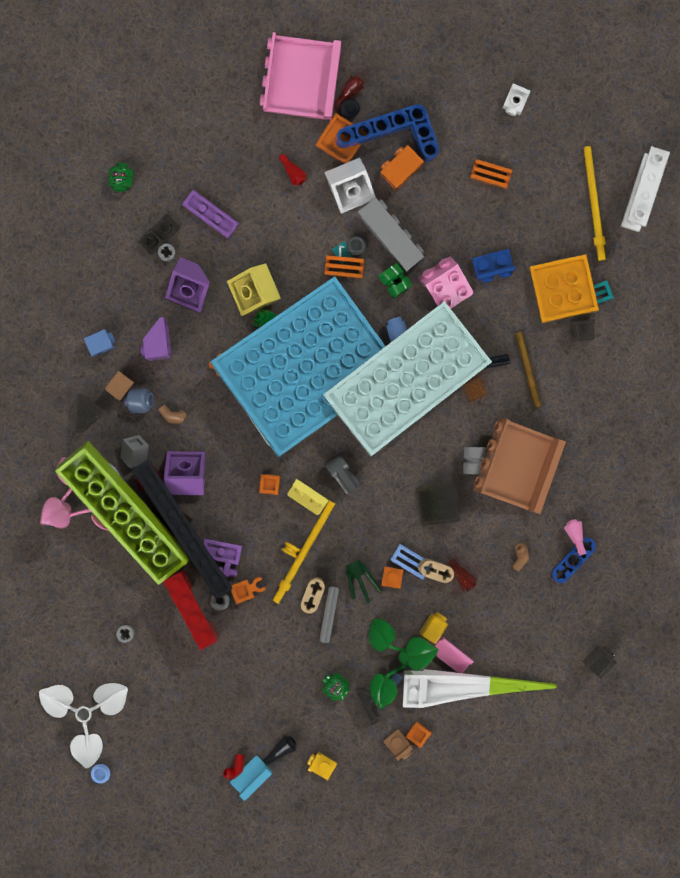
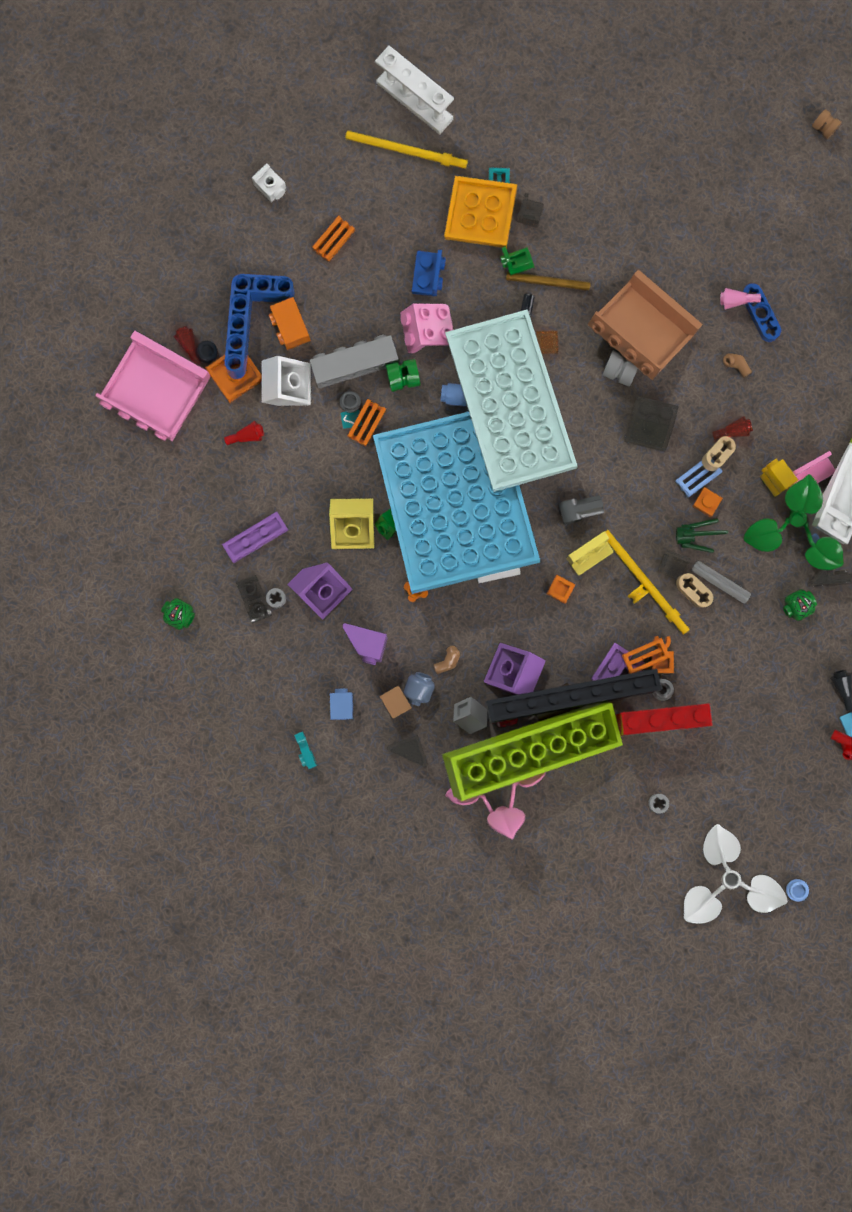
camera: 70 degrees left, 5 degrees down
(47, 332) = (307, 757): none -> teal plate
(251, 587) = (628, 664): none -> orange tile
(533, 336) = (517, 261): none -> green bracket

